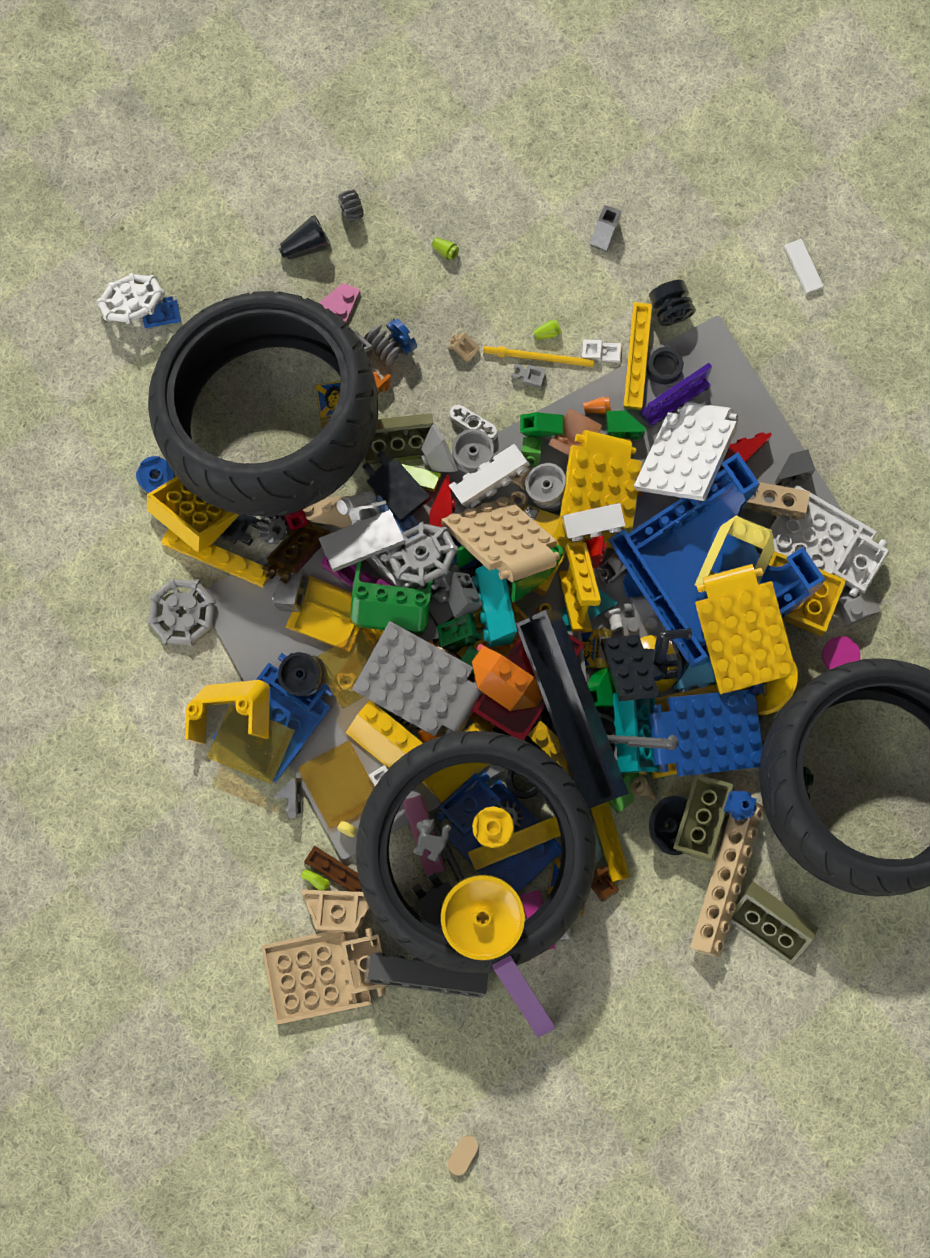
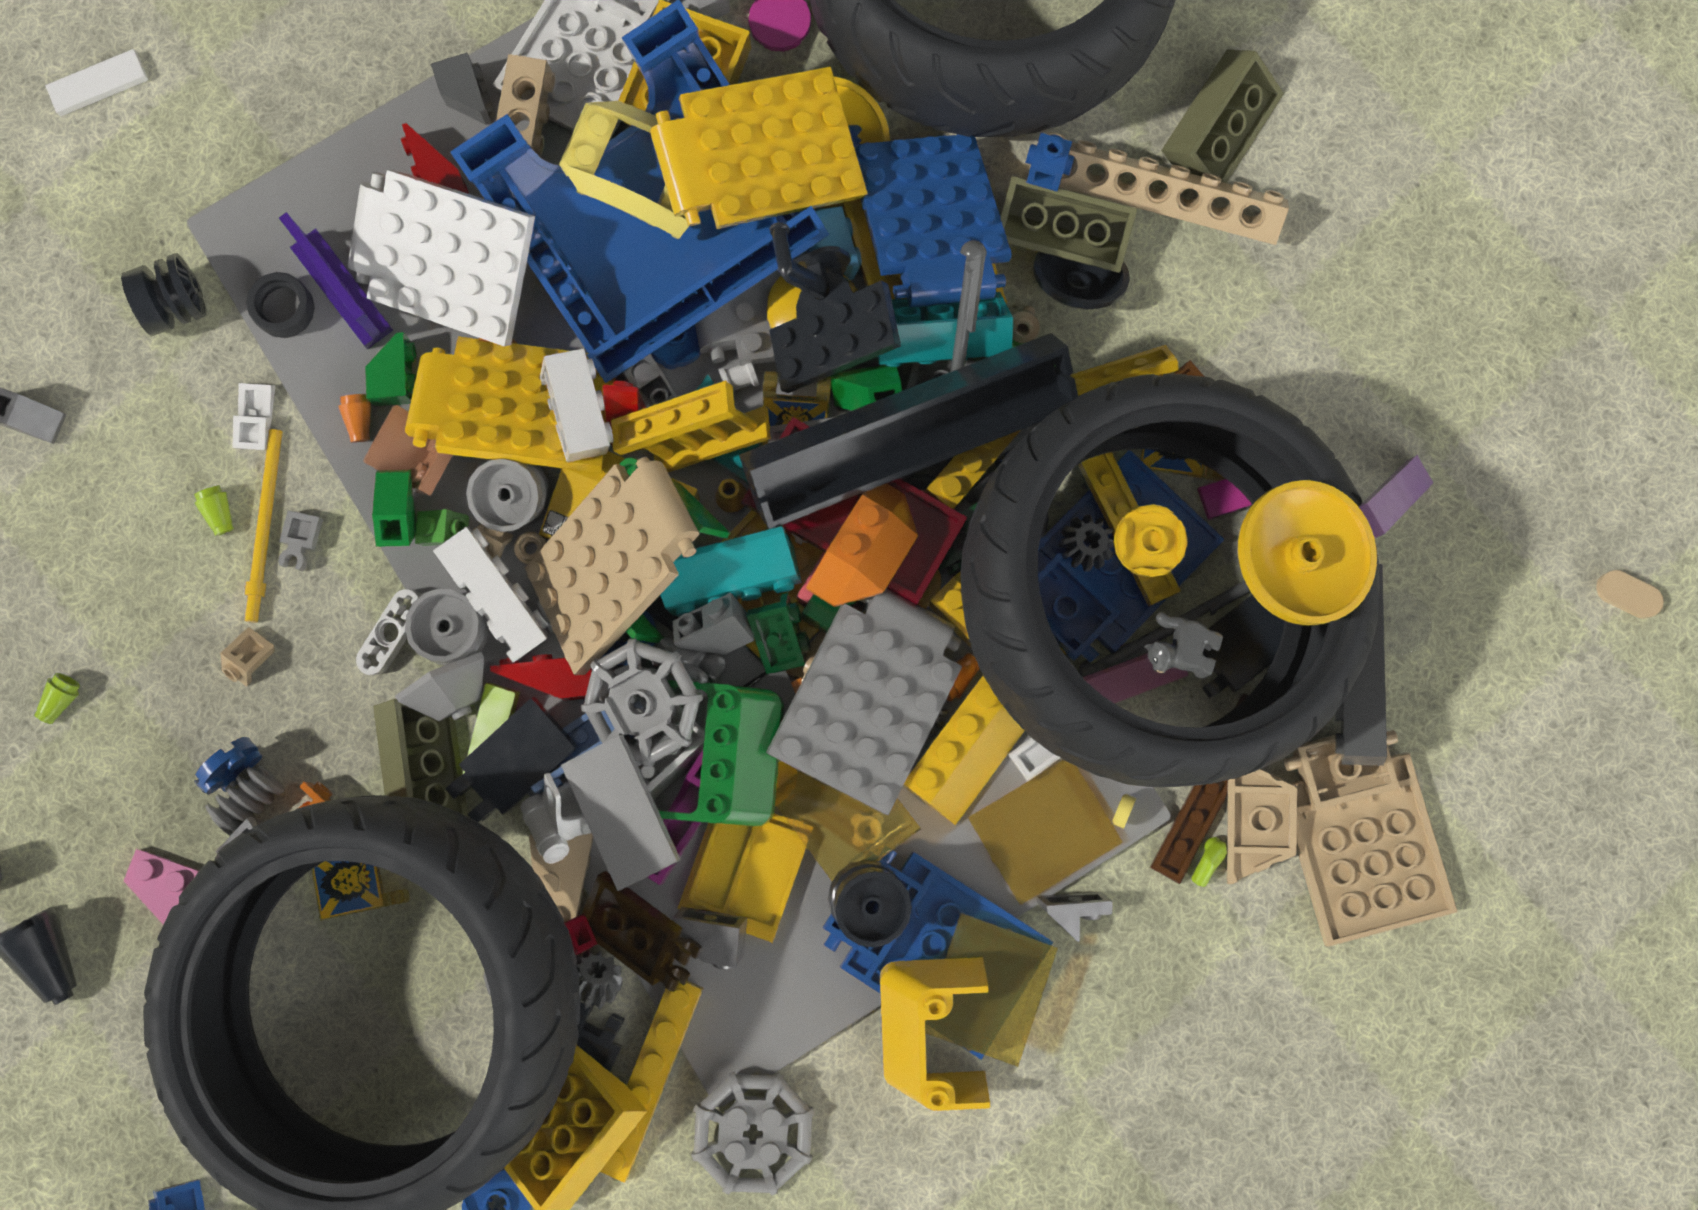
camera: 90 degrees left, 5 degrees up
(637, 356) = (262, 352): yellow plate -> none

